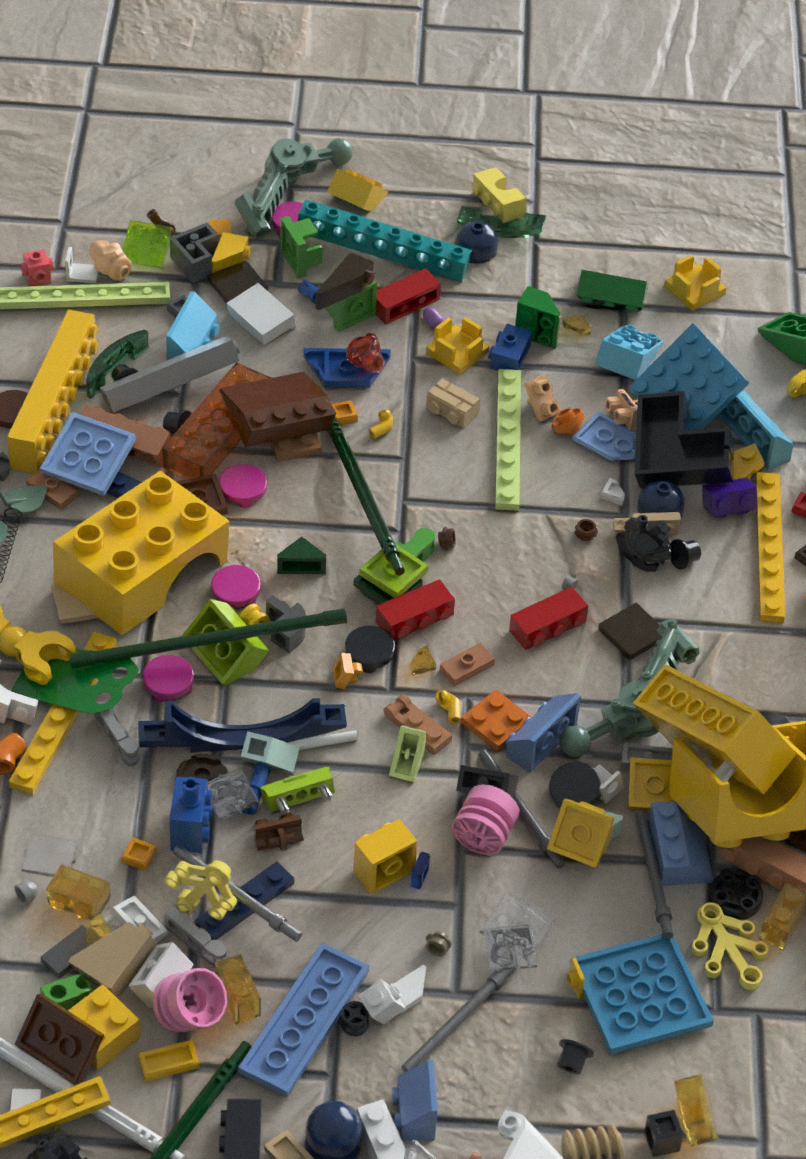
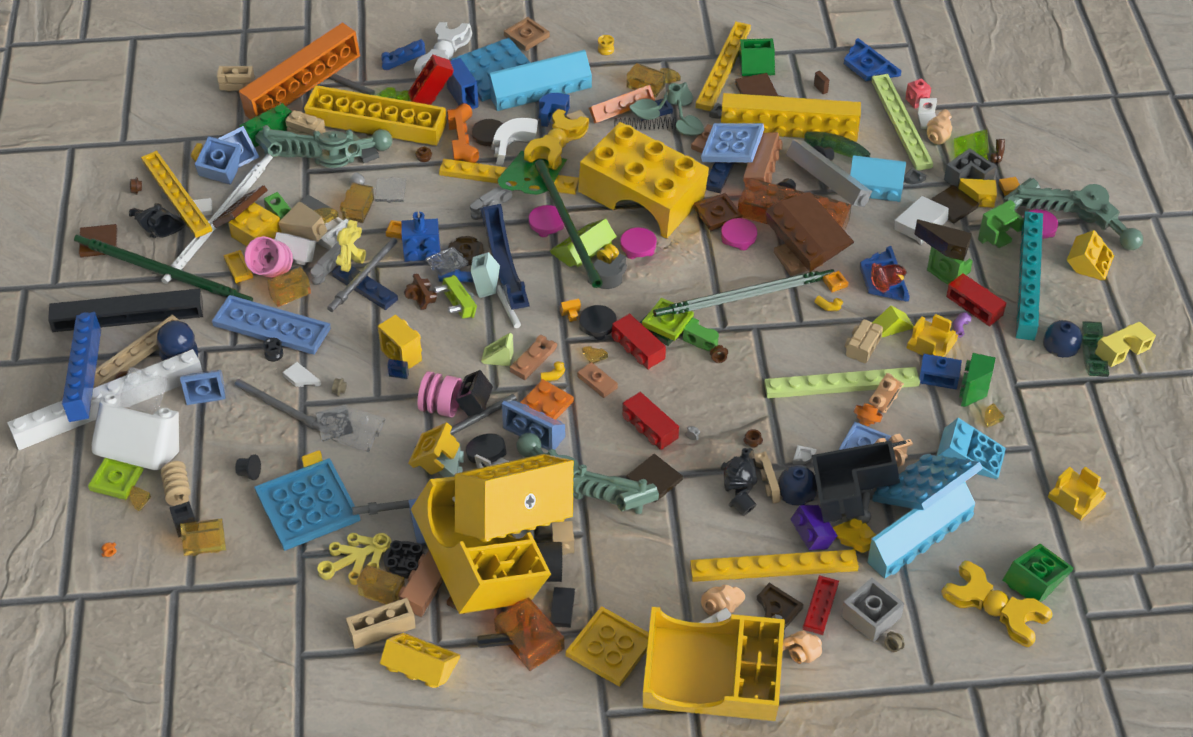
camera: 85 degrees right, 0 degrees up
(301, 558) = (674, 272): dark green slope -> none
(382, 1001) = (281, 356): white brick -> none
(424, 375) = (893, 321): none -> neon yellow slope
(612, 290) = (1043, 432): green slope -> none

